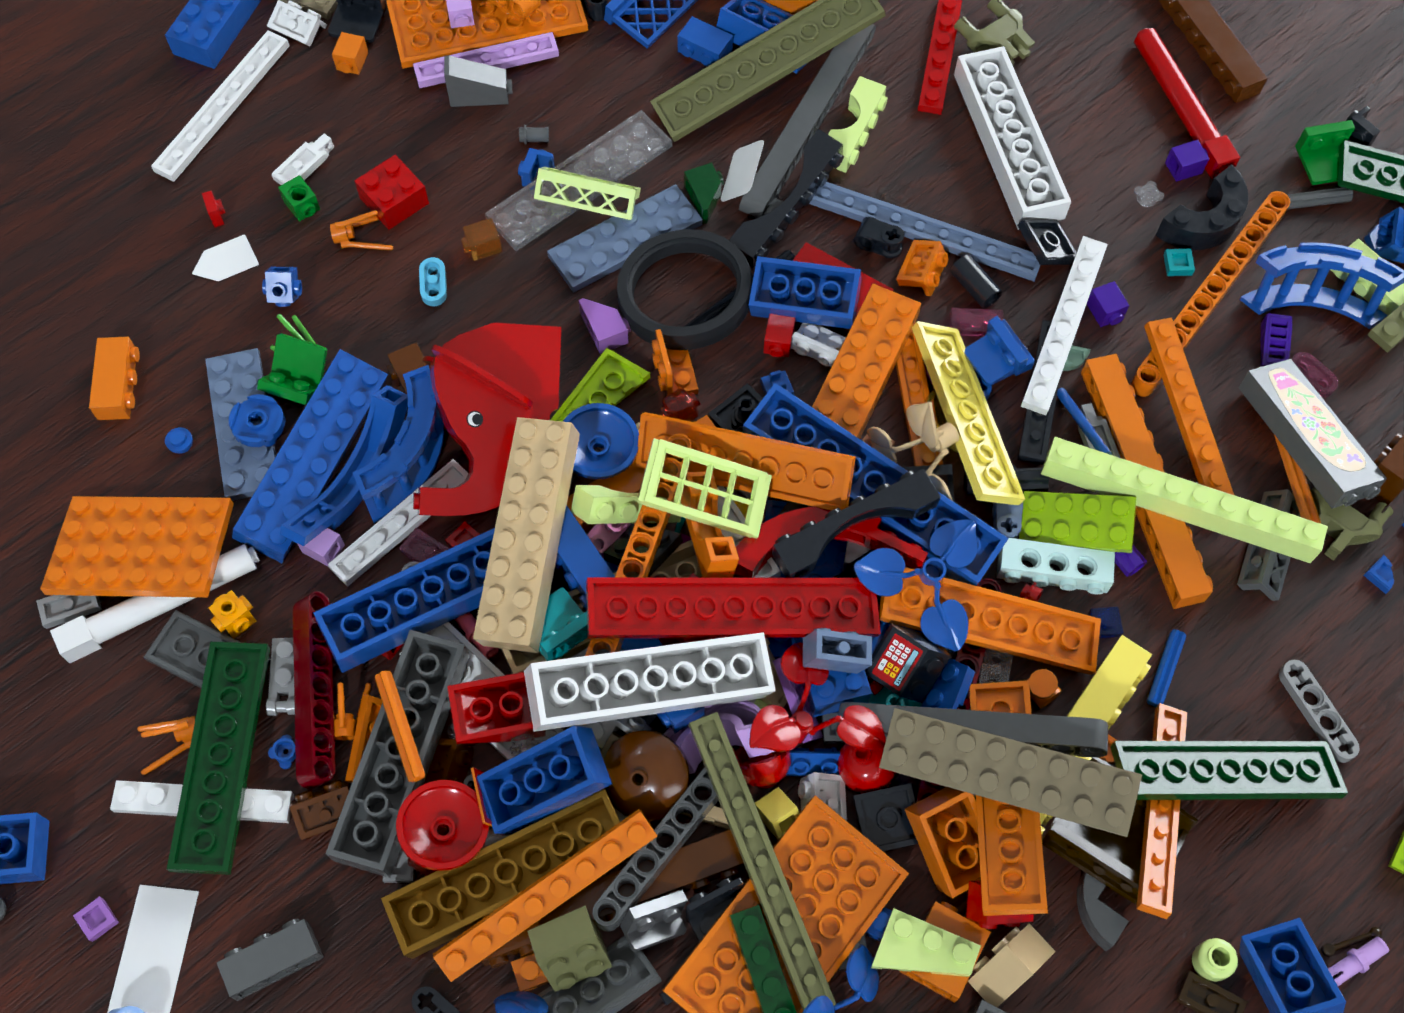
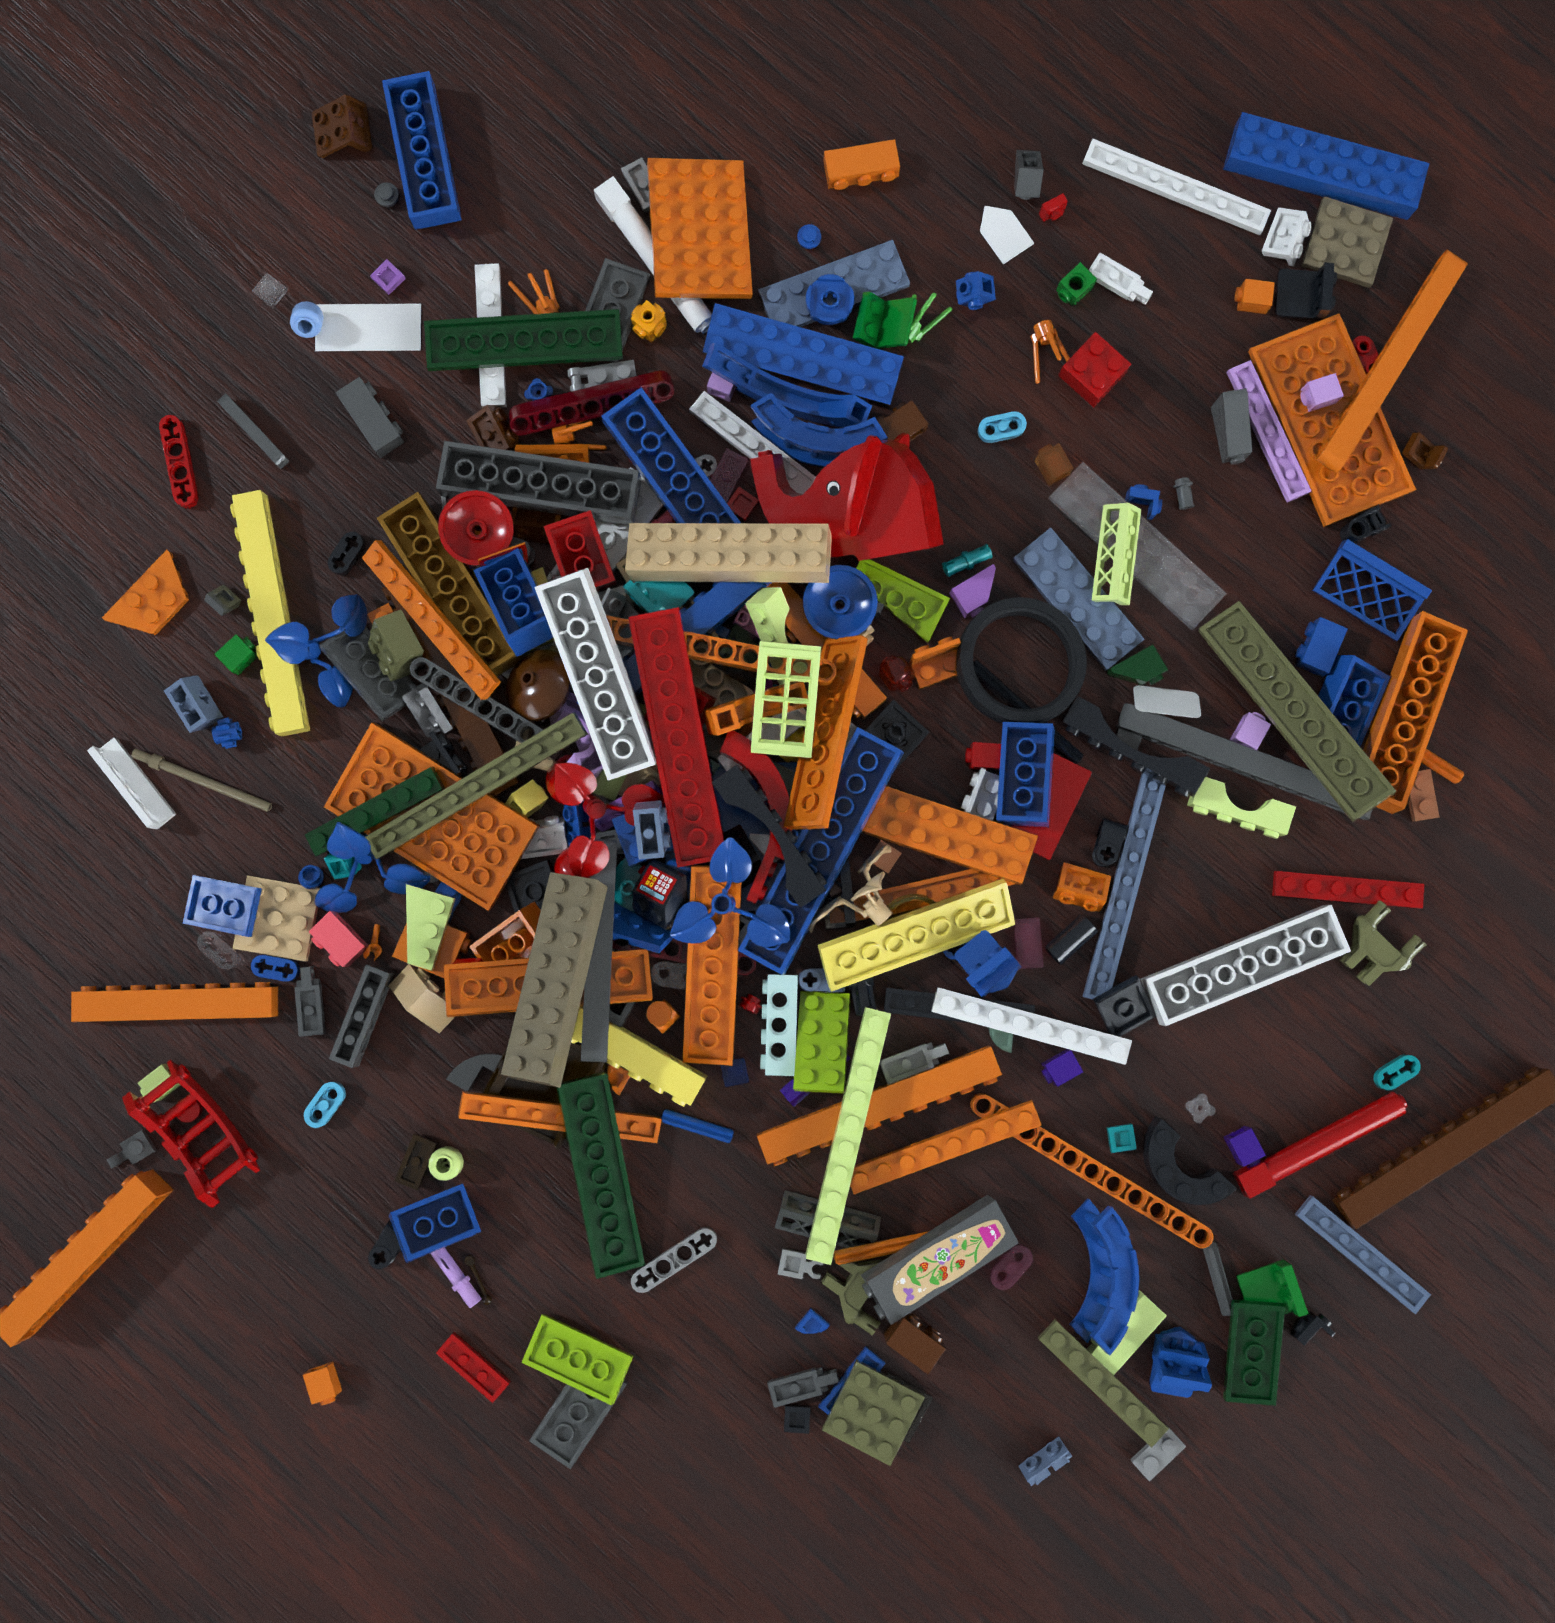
camera: 85 degrees right, 20 degrees up
(171, 226) = (1028, 174): none -> dark grey slope
(400, 726) = (551, 477): orange axle -> none
(569, 329) = (967, 560): none -> teal pin
(778, 377) = (933, 760): blue tile -> none
(779, 107) = (1251, 730): none -> lavender brick
(1082, 421) = (922, 1045): blue piece -> none
(1117, 36) = (1400, 1076): none -> teal beam
(1280, 326) = (1042, 1241): dark purple slope -> none
(1287, 82) = (1362, 1254): none -> sand blue plate
(1317, 580) = (794, 1264): none -> light grey plate

